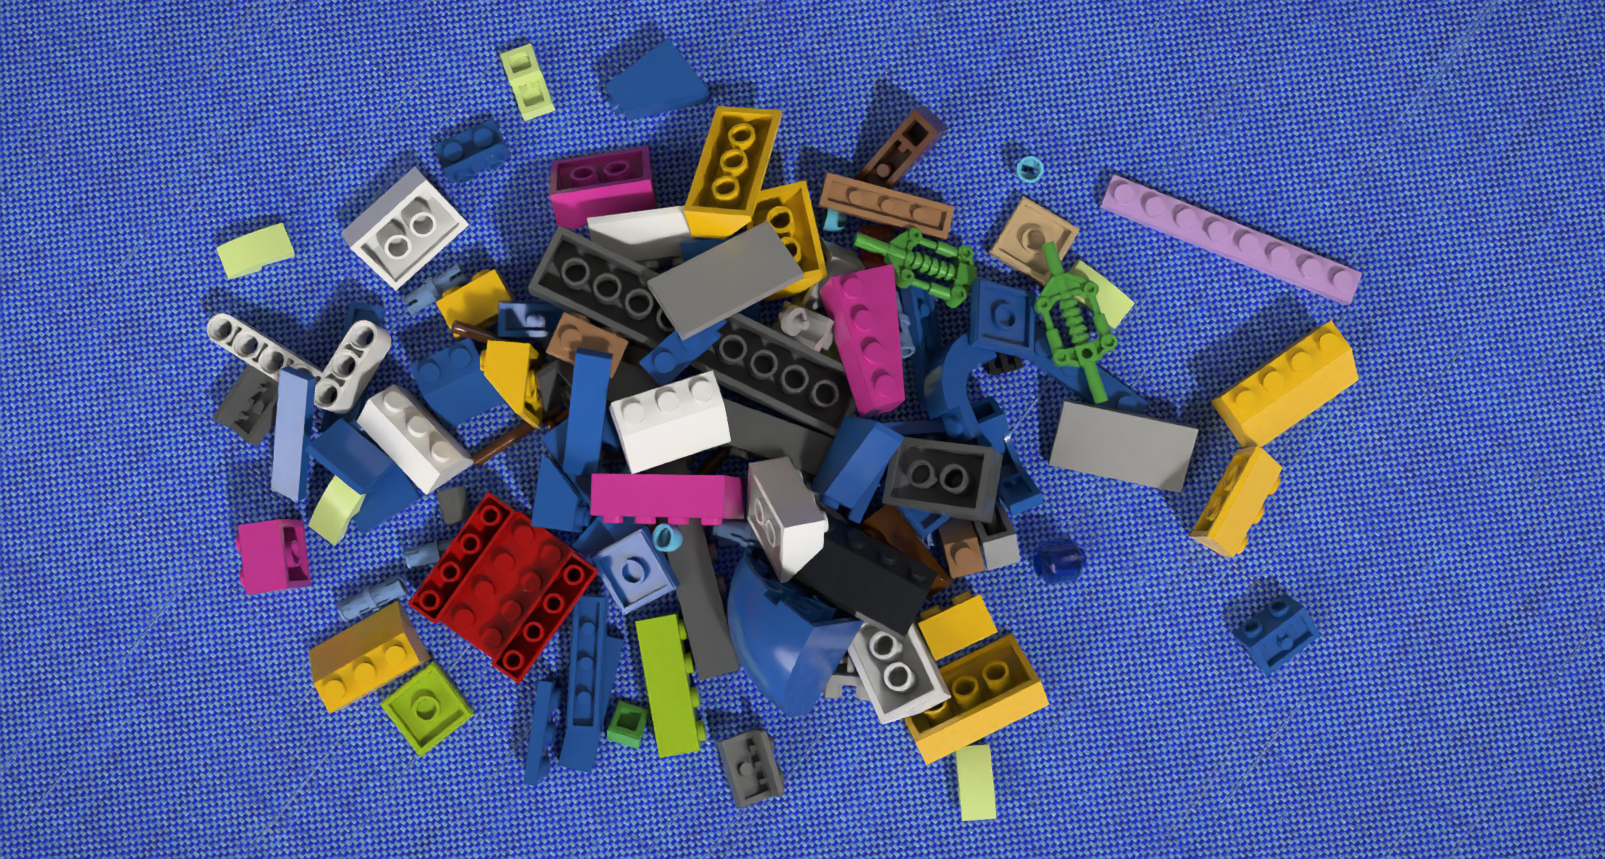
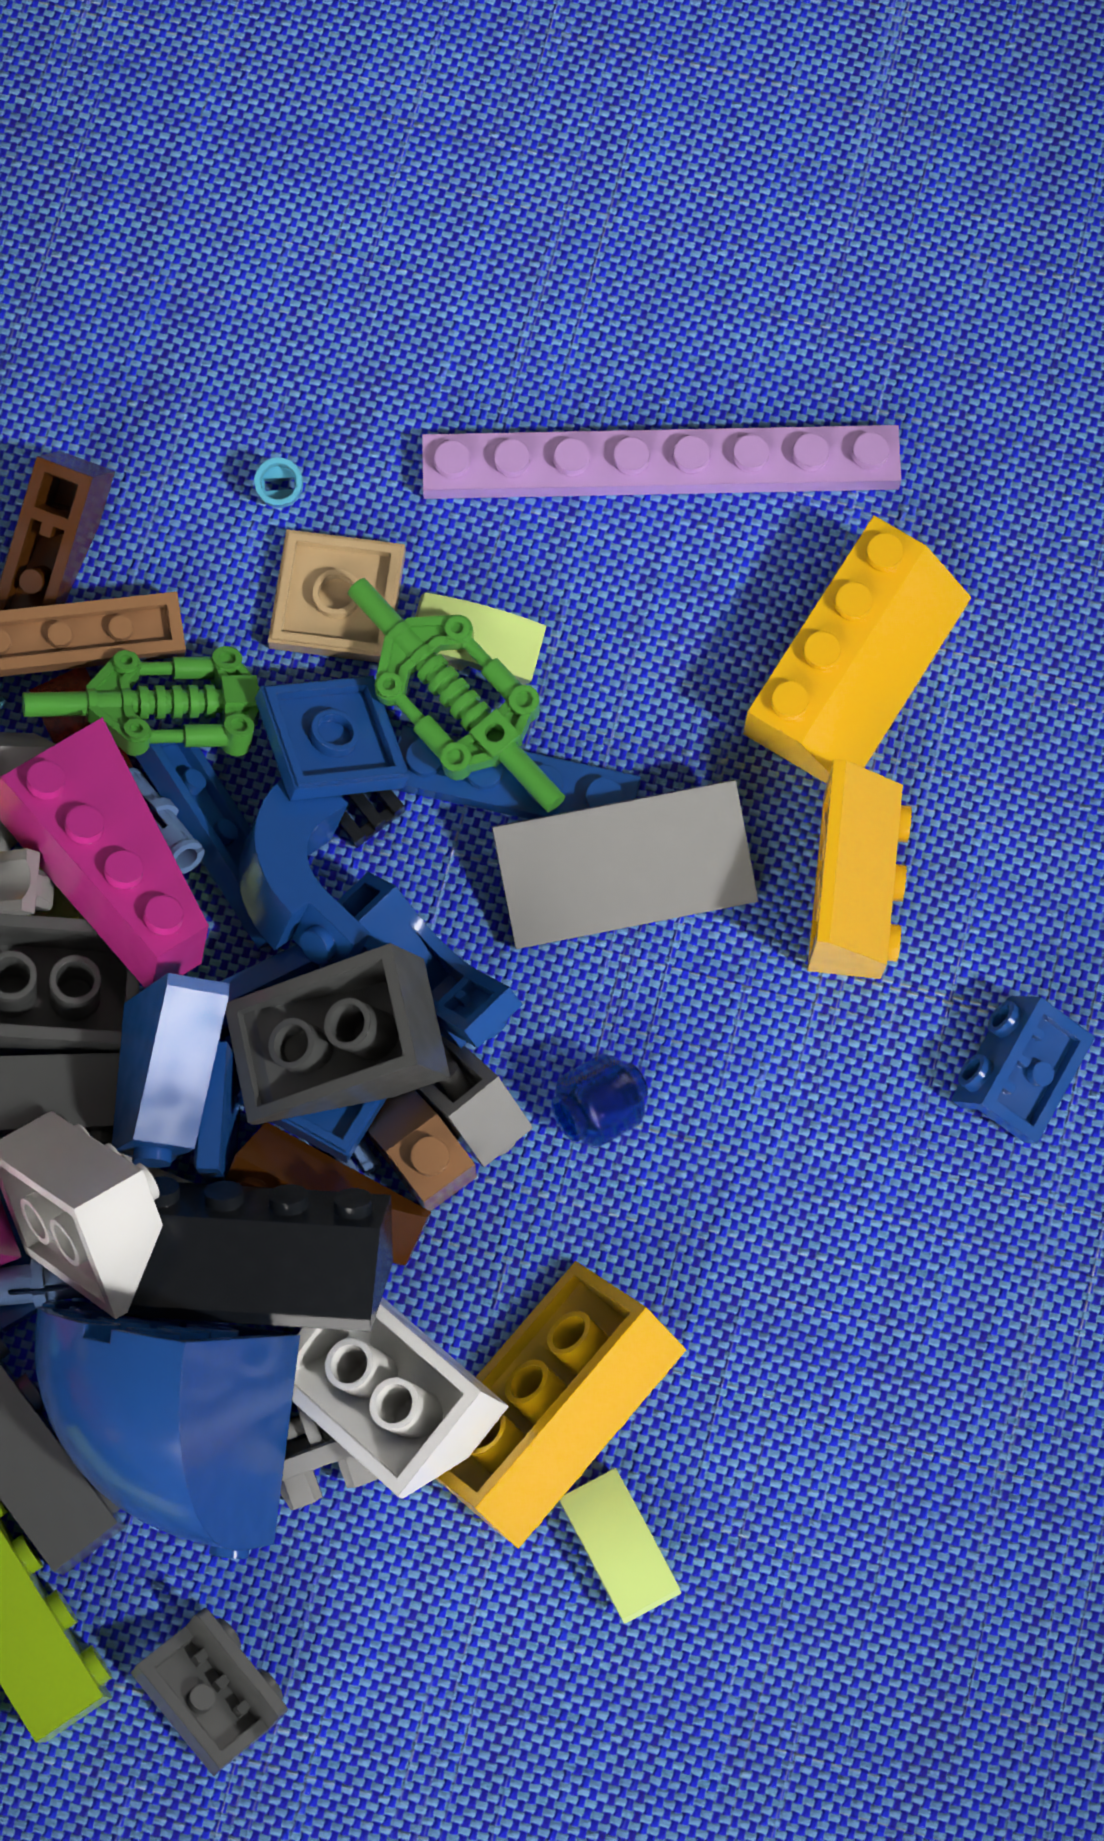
camera: 30 degrees left, 10 degrees down
(955, 625) = (467, 1282): yellow brick -> none

